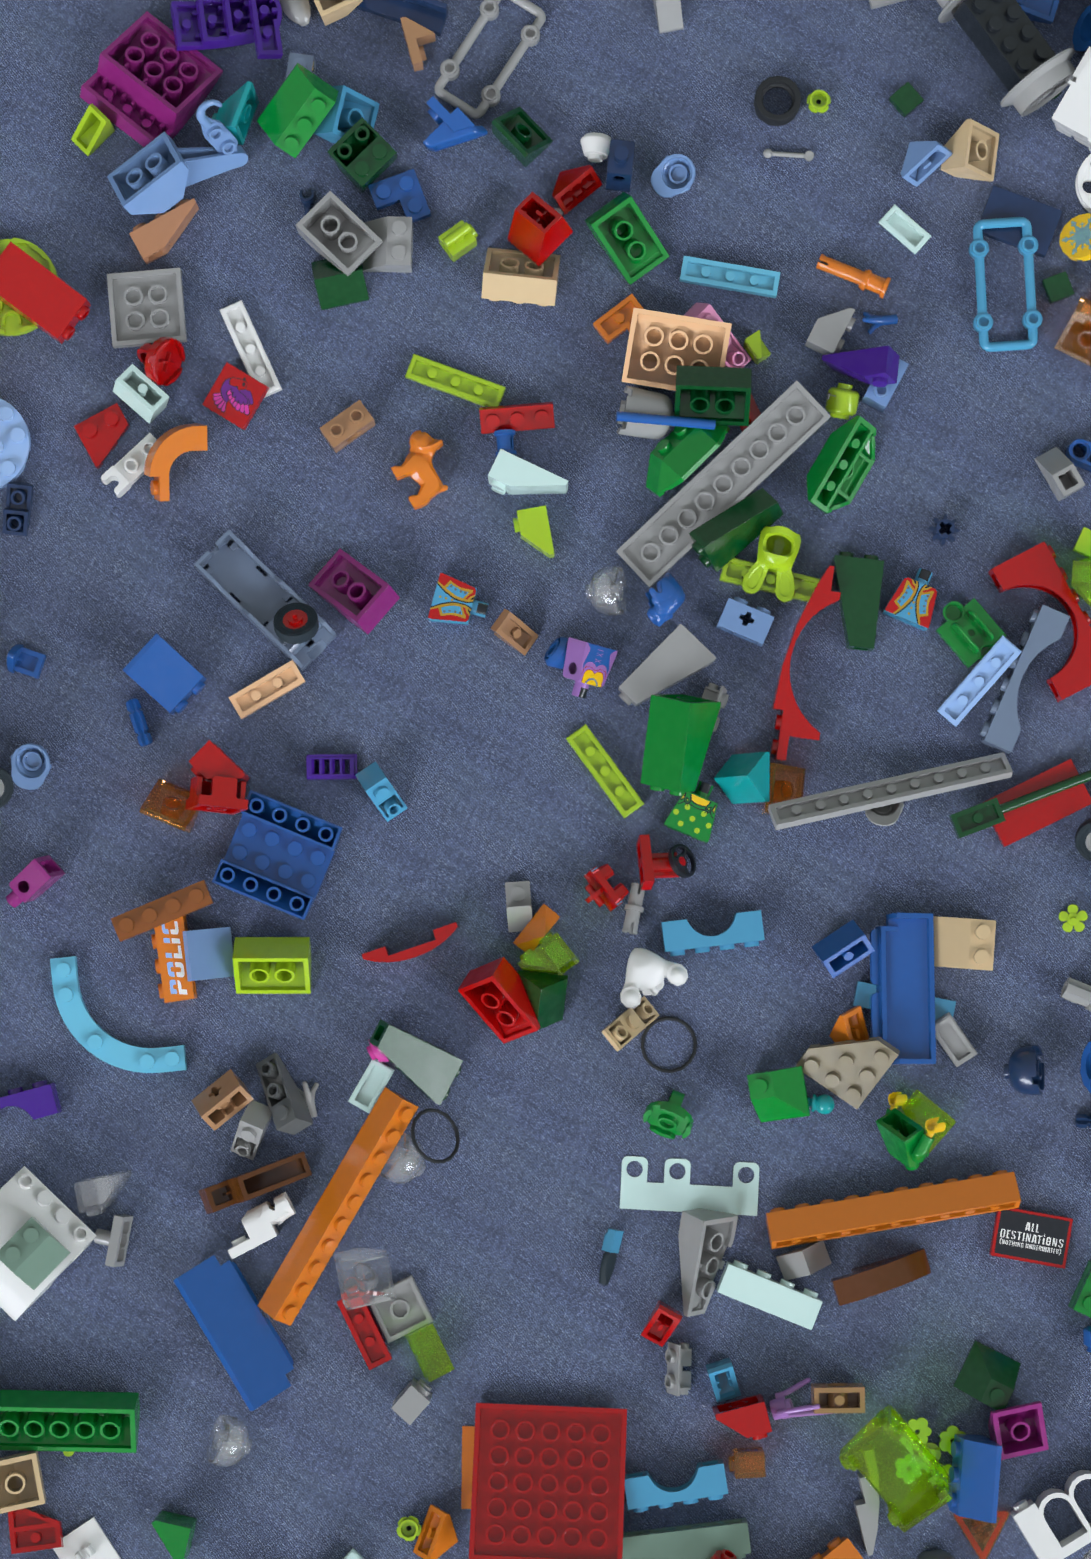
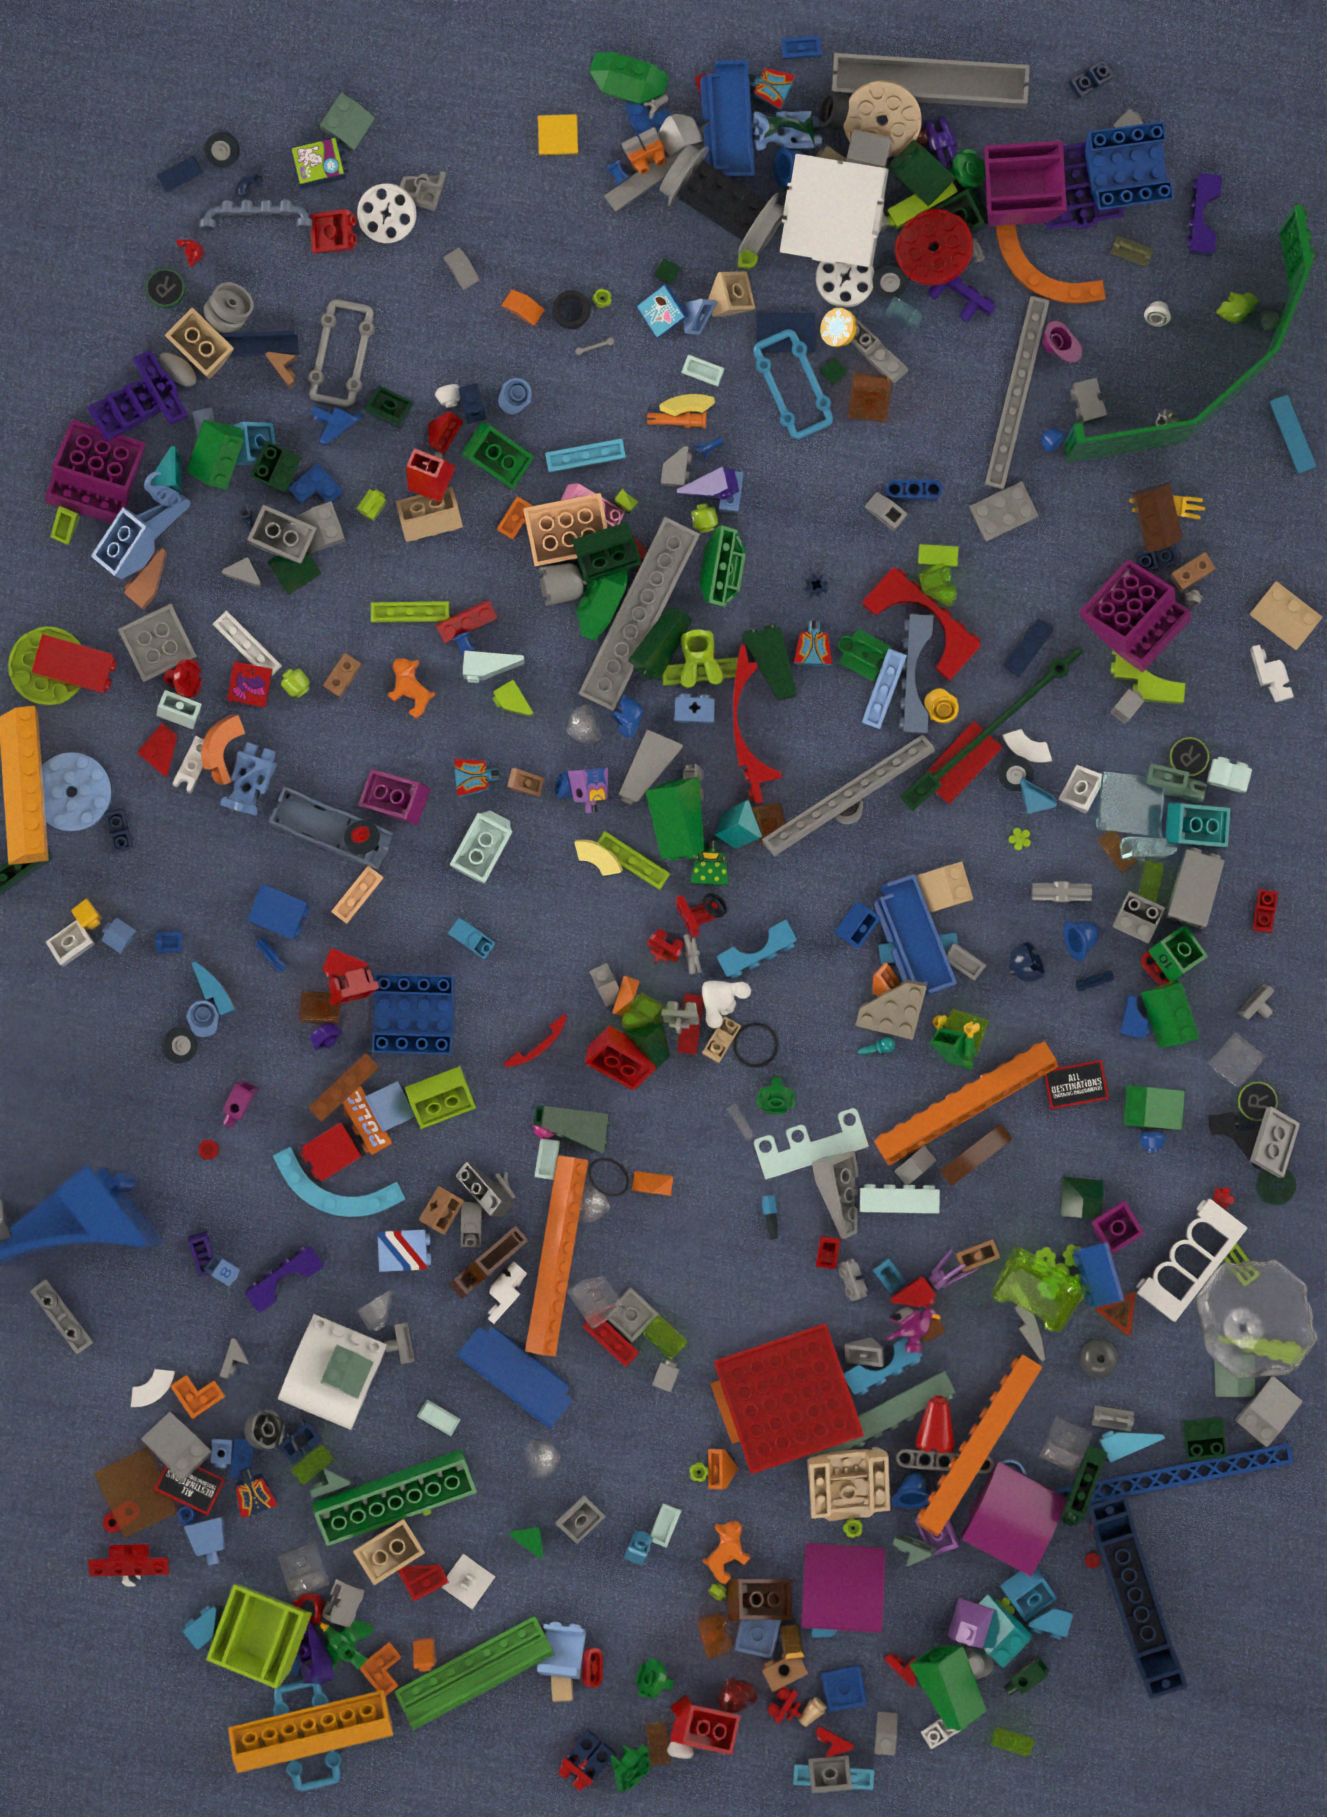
camera: 25 degrees left, 0 degrees up
(55, 735) = (213, 989): none -> dark azure slope
(119, 981) = (331, 1152): none -> red slope
(126, 1343) = (438, 1417): none -> light aqua tile
(160, 1130) = (403, 1250): none -> panel
(165, 842) = (325, 1036): none -> dark purple piece
(203, 504) = (255, 769): none -> medium blue hips
(246, 1530) = (580, 1519): none -> light grey slope
(278, 262) = (243, 572): none -> light grey slope
(289, 414) = (295, 682): none -> lime head
(310, 766) = (415, 946): dark purple slope -> none
(435, 687) = (482, 846): none -> light aqua slope
(484, 1162) = (652, 1183): none -> orange slope
(567, 750) = (598, 855): none -> light yellow tile
(590, 980) = (678, 1018): none -> light grey hips
(600, 990) = (689, 1037): none -> red plate
(616, 1129) = (741, 1122): none -> clear axle
(660, 1461) = (864, 1352): none -> light grey slope
(665, 420) = (578, 583): blue bar -> none
(722, 77) = (523, 307): none -> orange slope
(728, 1455) = (912, 1326): none -> magenta animal
(779, 1094) = (850, 1050): green slope -> none
(873, 260) = (686, 403): none -> light yellow tile
(883, 141) = (662, 311): none -> tile
(1005, 119) = (747, 260): none -> lime tile
(1039, 727) = (941, 706): none -> yellow hat

